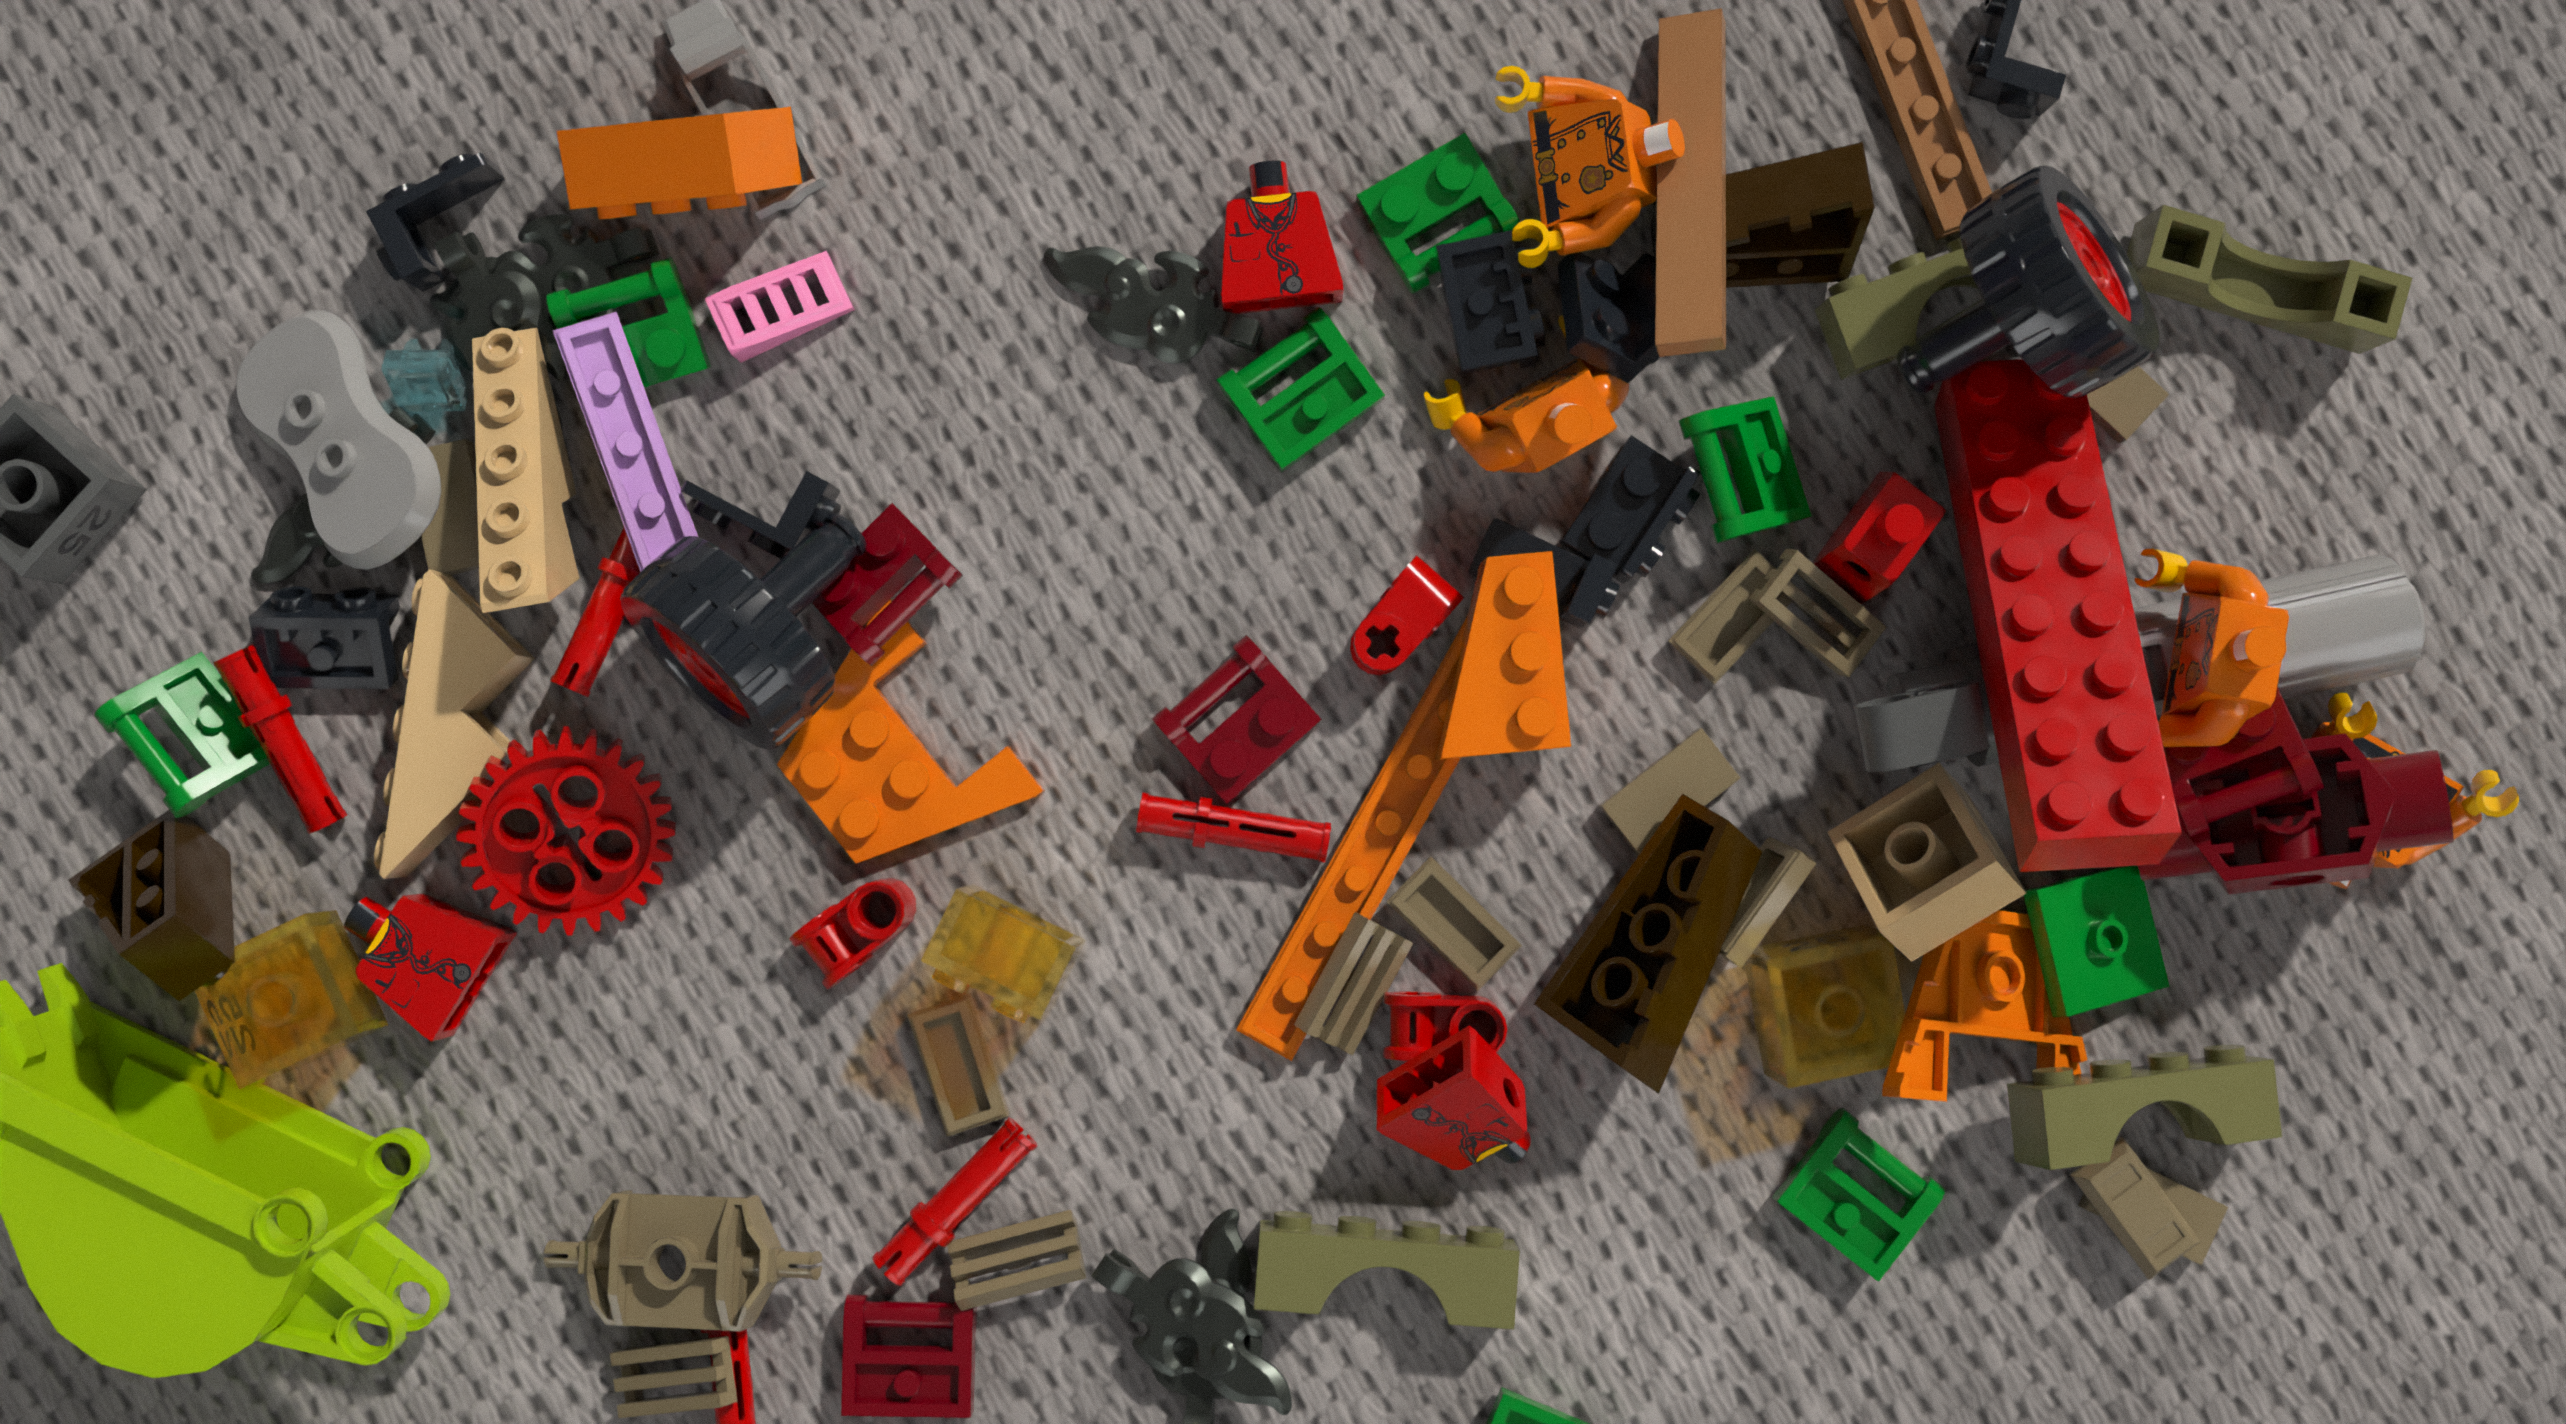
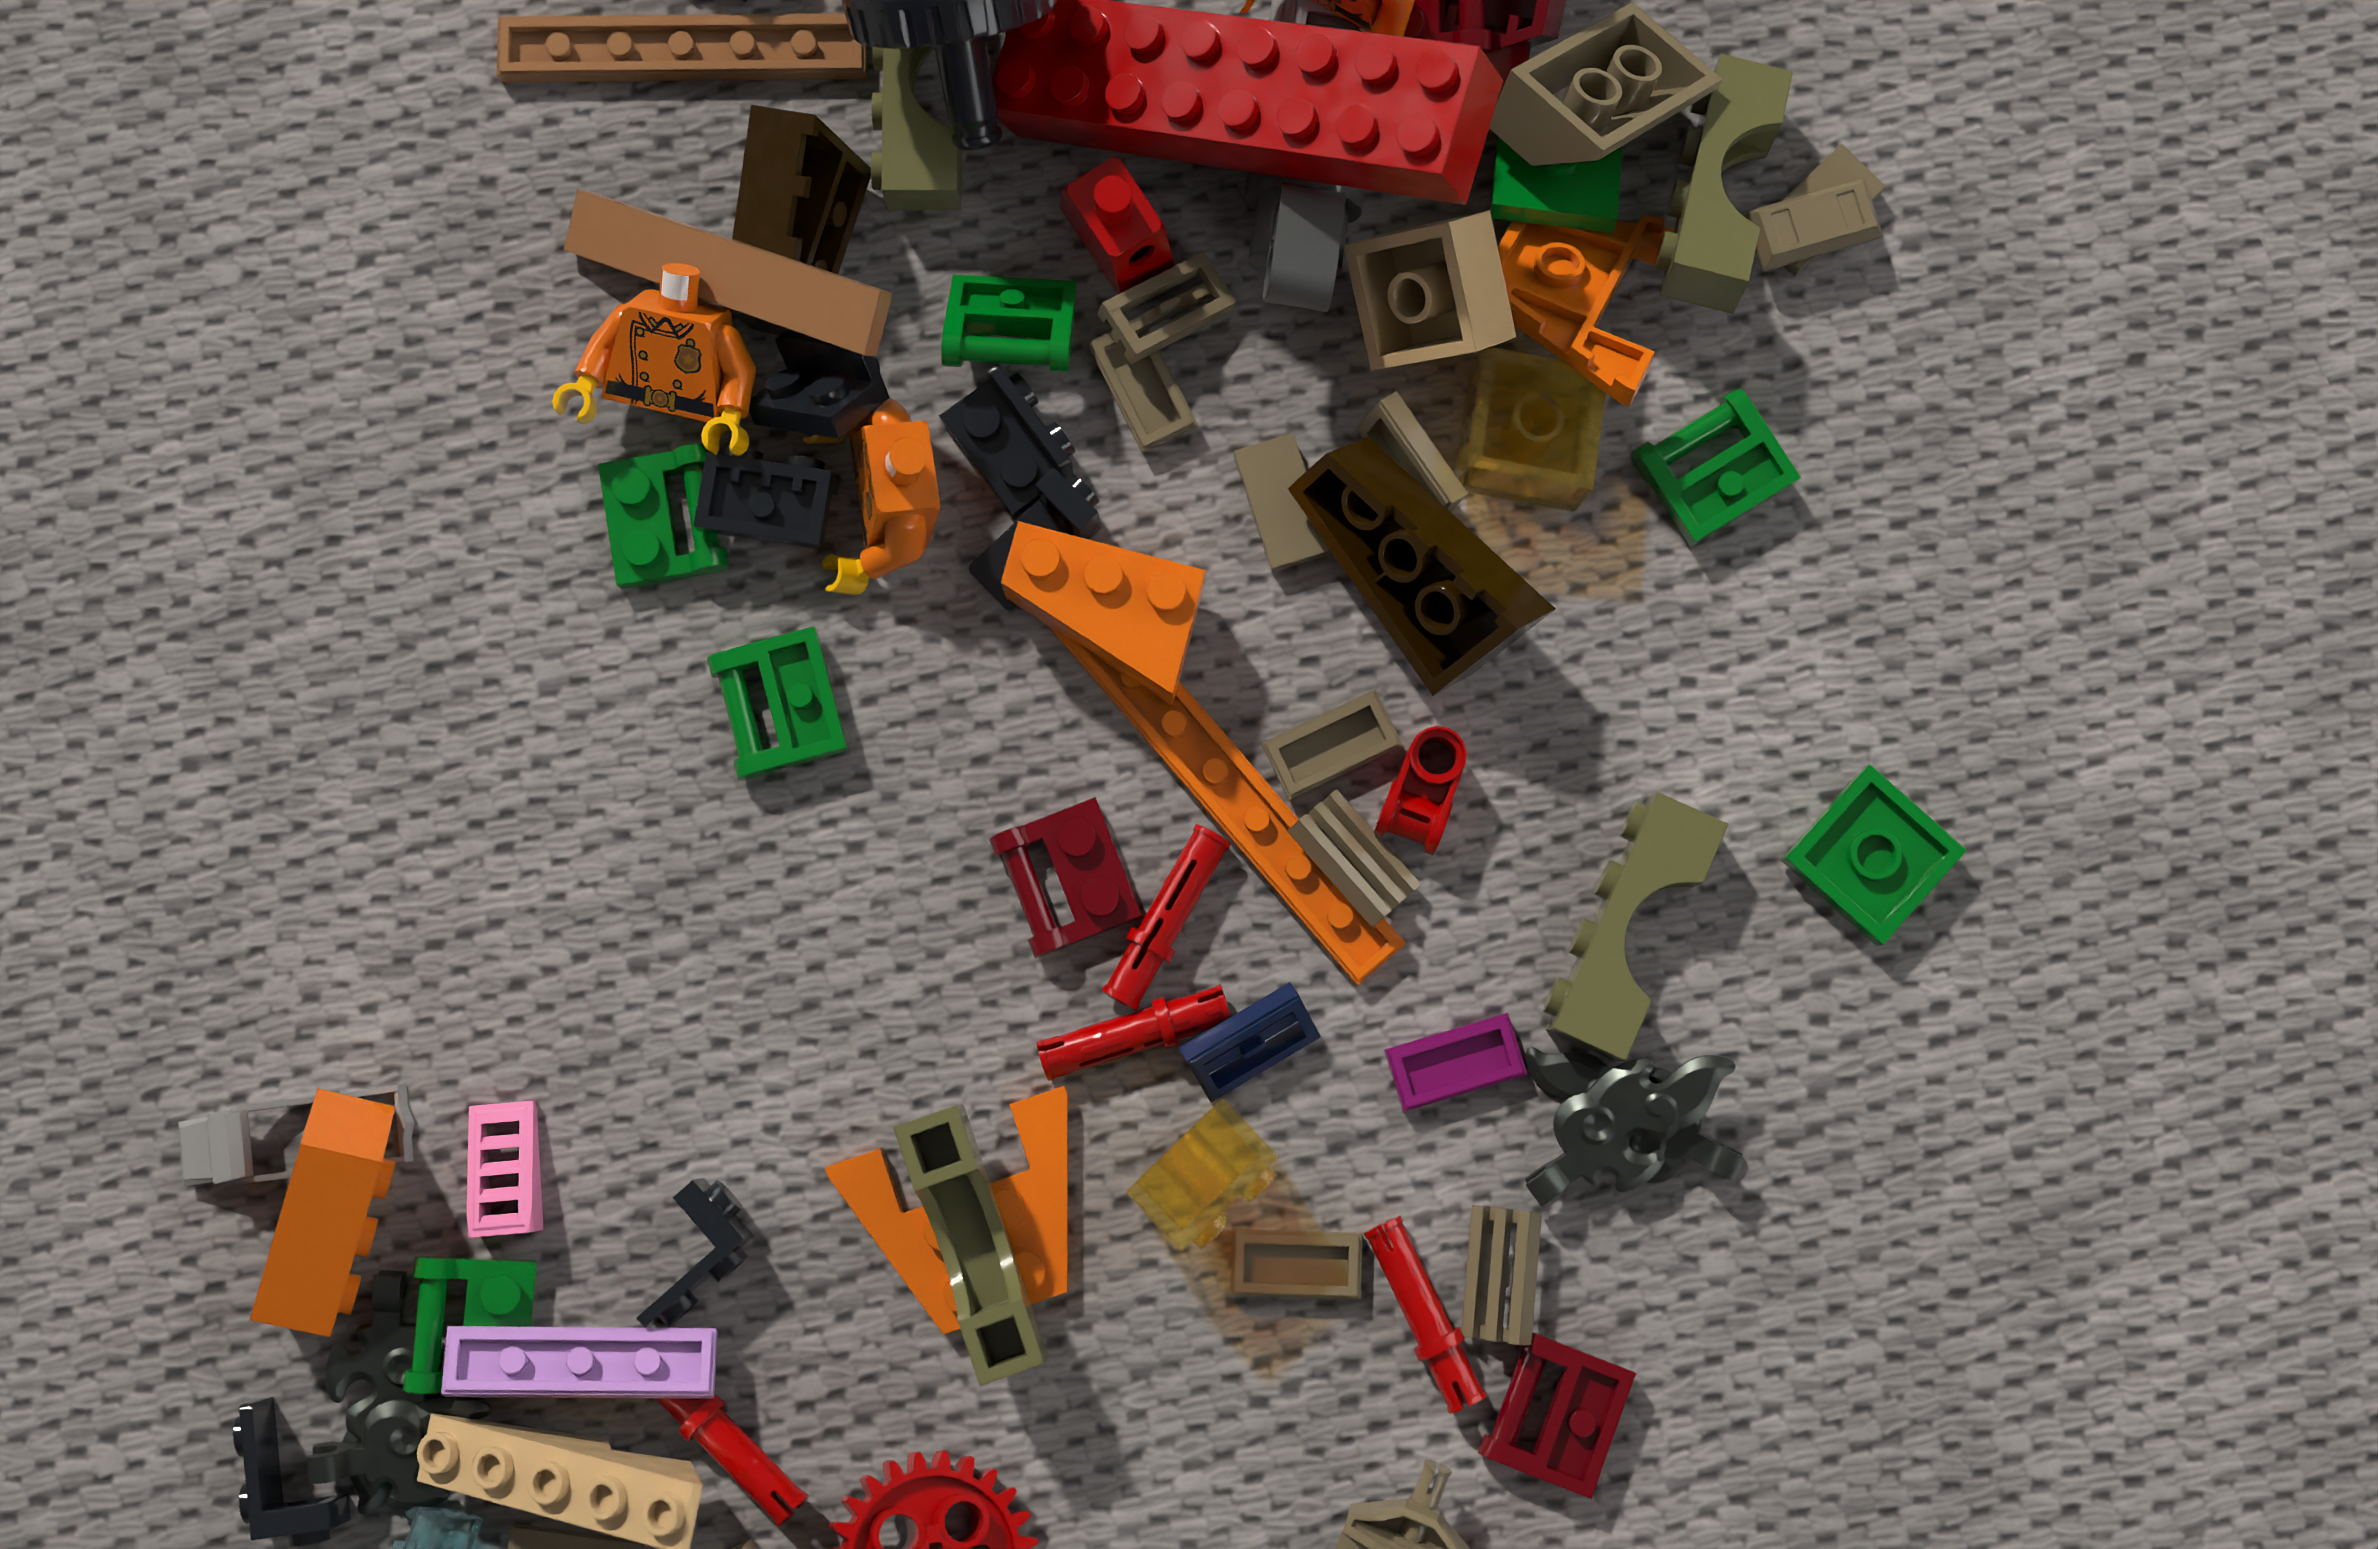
camera: 65 degrees left, 5 degrees down
(739, 636) = (805, 1317): black wheel -> none
(847, 934) = (1130, 1319): red piece -> none
(856, 770) = (973, 1243): none -> olive arch
(891, 559) = (795, 1173): dark red plate -> none
(1123, 848) = (1134, 1032): none -> red pin
(1135, 316) = (648, 833): pearl dark grey piece -> none
(1145, 948) = (1246, 1035): none -> dark blue tile
(1198, 1146) = (1455, 1062): none -> magenta tile
(1277, 247) = (637, 675): red torso -> none
(1409, 611) = (1026, 679): red piece -> none
(1455, 1104) = (1499, 801): red torso -> none
(2189, 957) = (1598, 90): none -> dark tan slope

